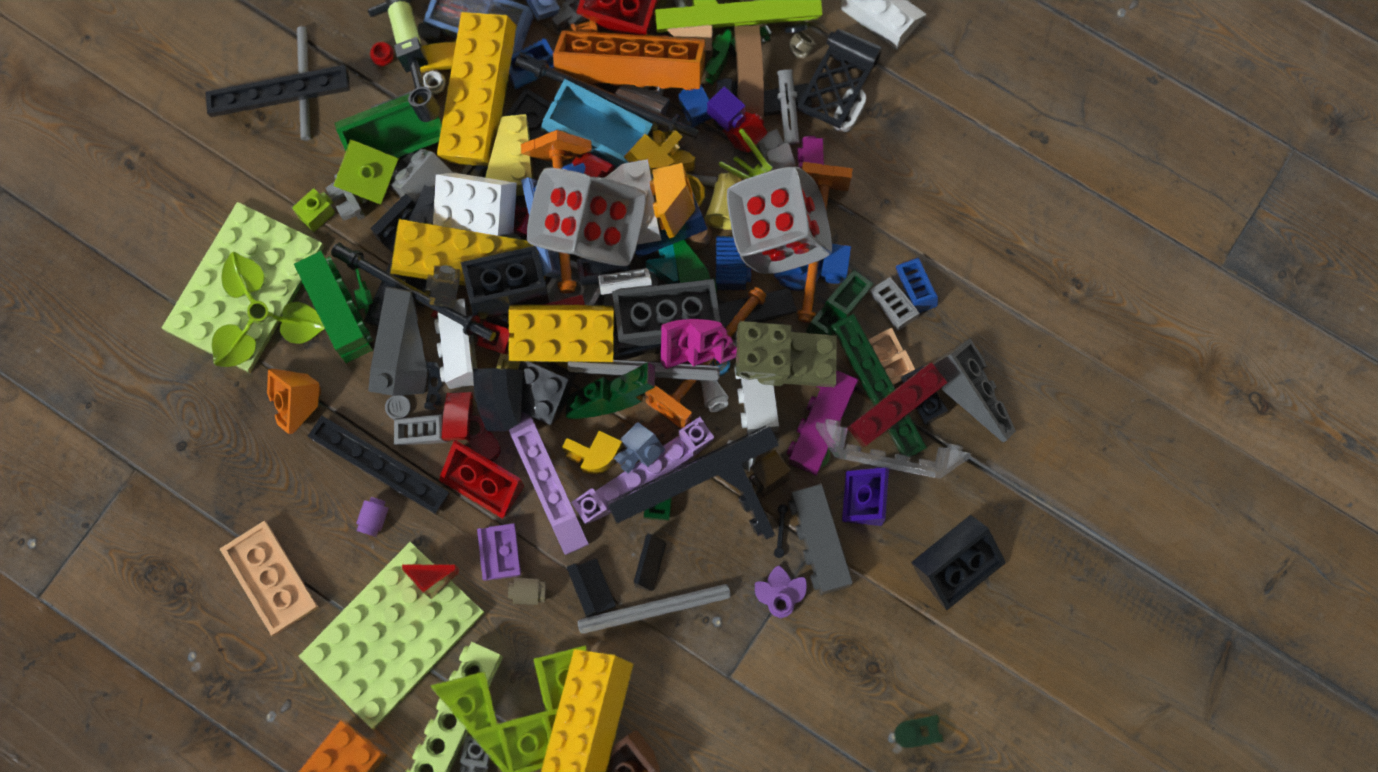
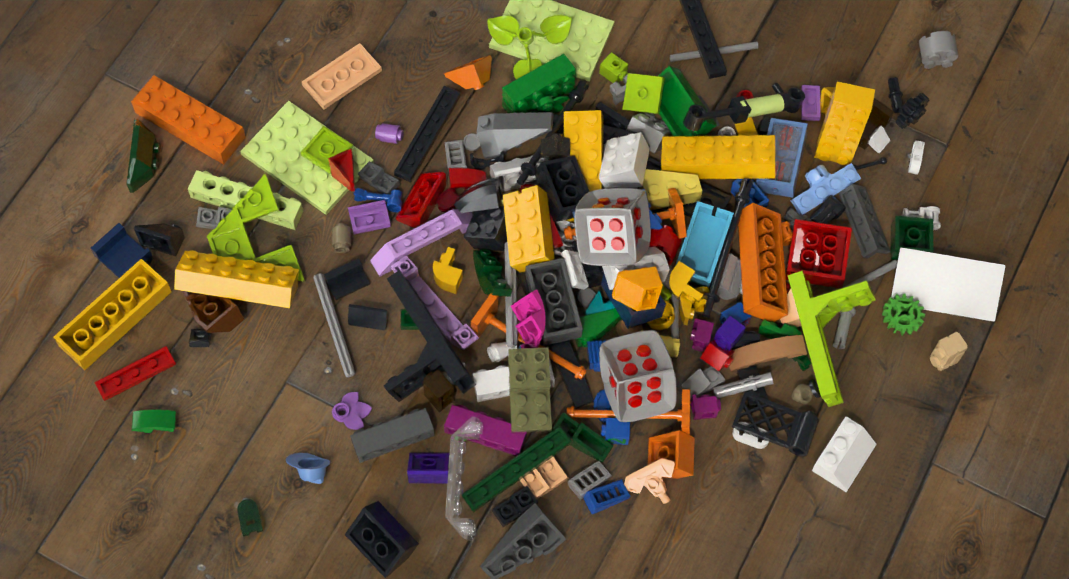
camera: 80 degrees right, 10 degrees down
(392, 602) = (323, 146): none -> lime plate
(441, 536) = (378, 179): none -> dark grey slope
(476, 518) = (393, 201): none -> blue brick
(640, 446) = (453, 301): sand blue brick -> none
(715, 147) = (701, 334): none -> magenta brick
(766, 167) = (683, 369): lime plant -> none
(779, 552) = (382, 409): black hinge -> none
(855, 648) = (309, 466): none -> medium blue piece
(872, 204) = (675, 447): none -> orange slope
(897, 404) = (500, 477): dark red brick -> none
(903, 227) = (651, 478): none -> light nougat piece

